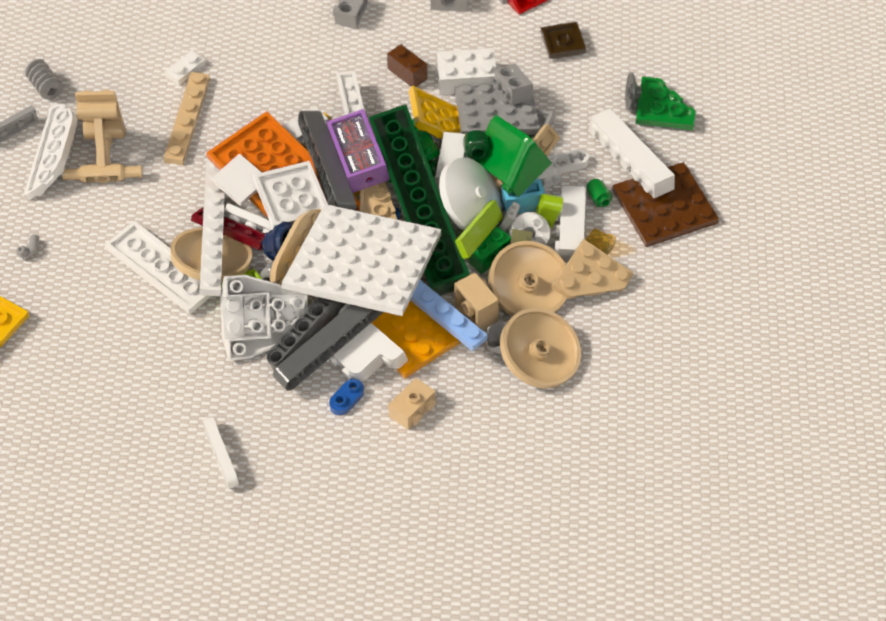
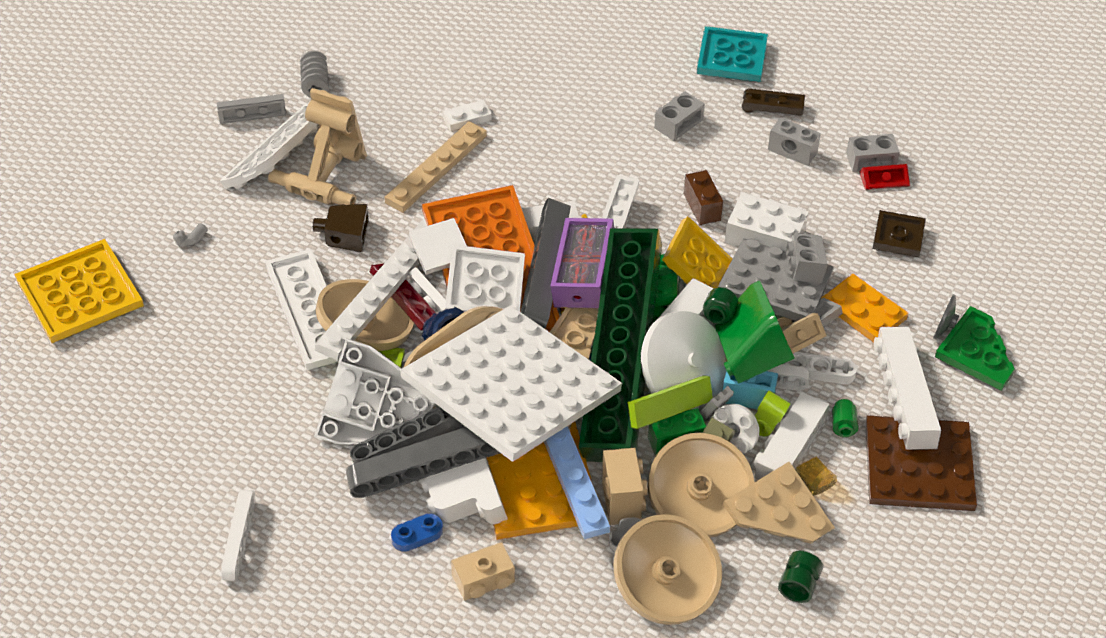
camera: 25 degrees right, 5 degrees down
(148, 193) = (344, 226): none -> dark brown torso
(569, 105) = (865, 307): none -> light orange plate
(630, 315) = (800, 576): none -> dark green wheel

